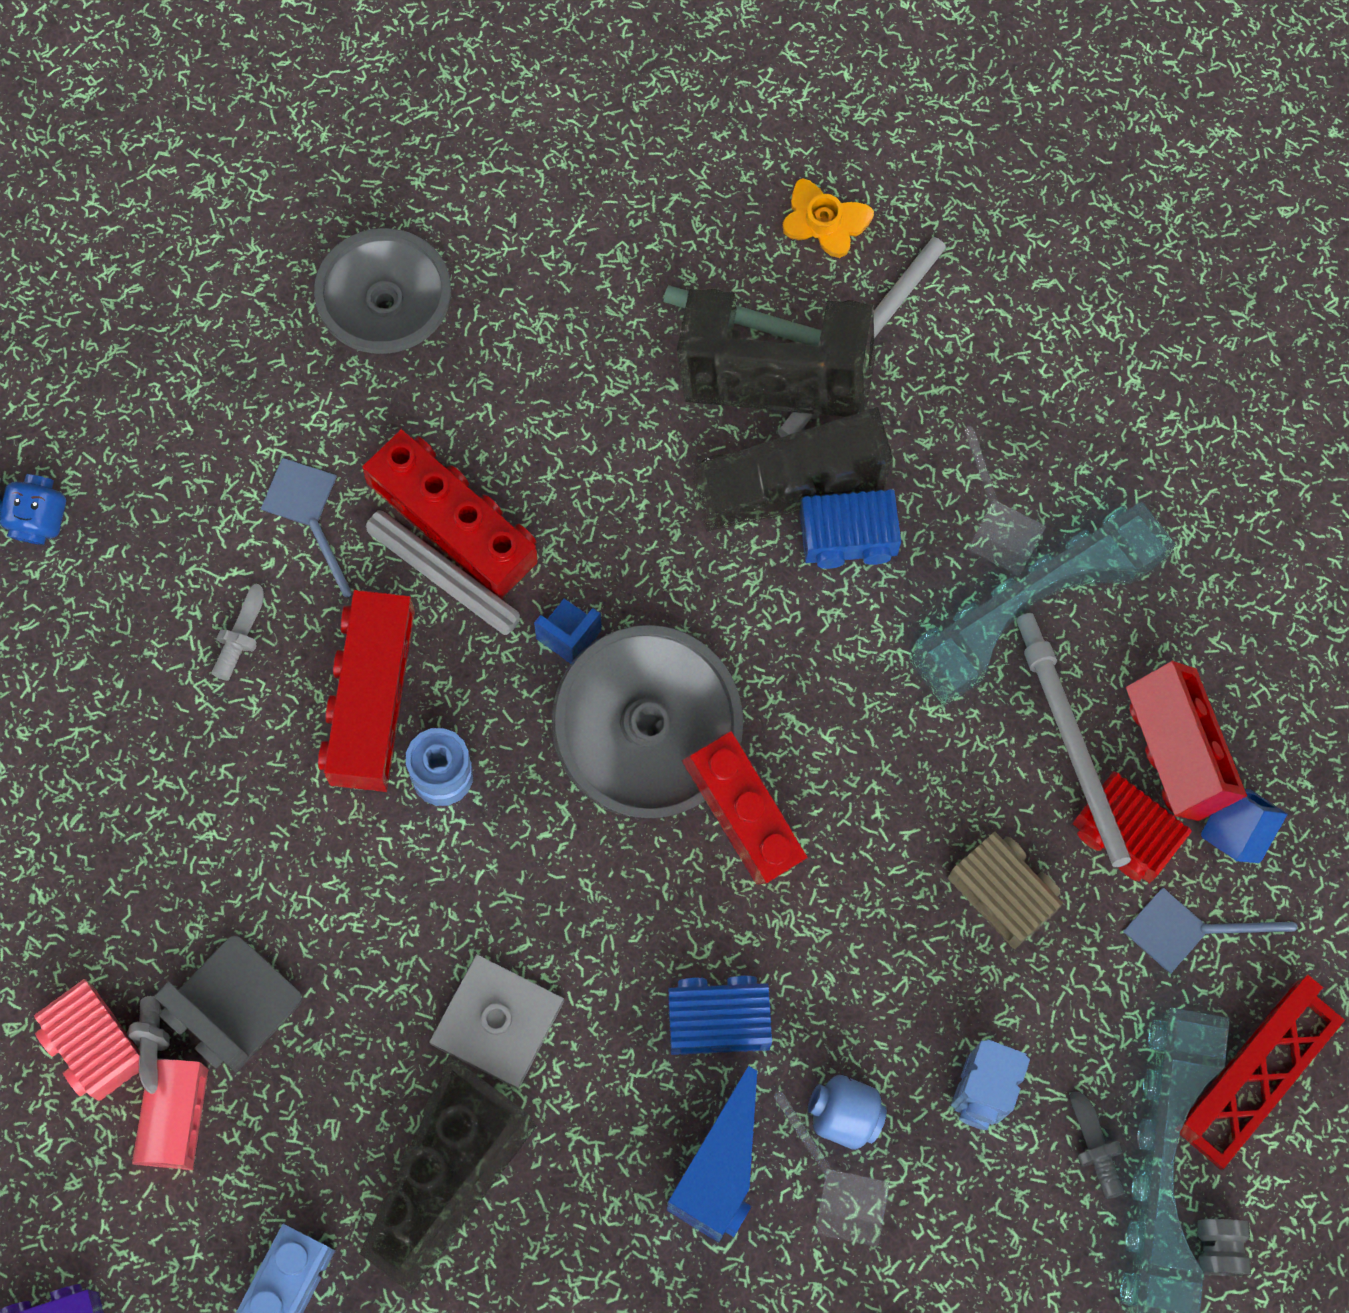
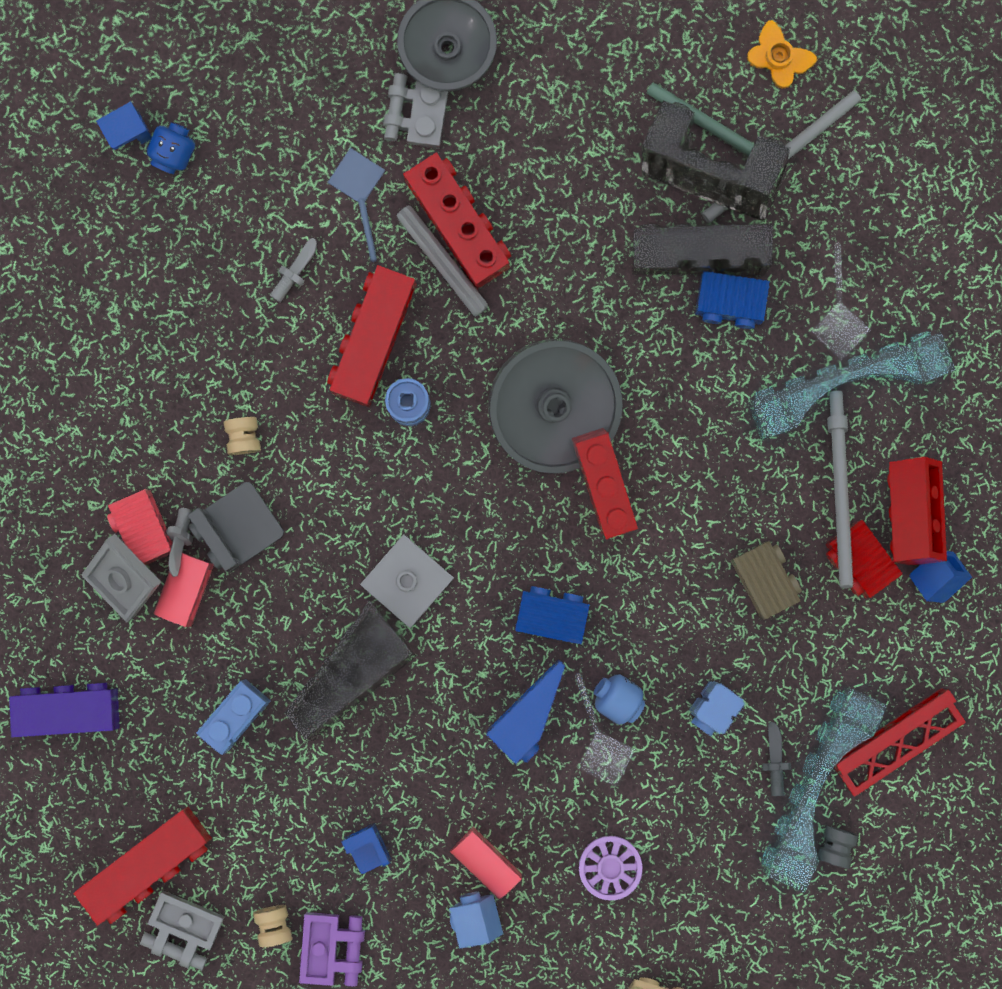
camera: 25 degrees right, 15 degrees up
(72, 1118) = (121, 578): none -> light grey plate
(212, 872) = (242, 435): none -> tan wheel
(377, 392) = (426, 117): none -> light grey plate
(568, 630) = (518, 324): blue panel -> none
(1171, 931) = (868, 633): sand blue piece -> none

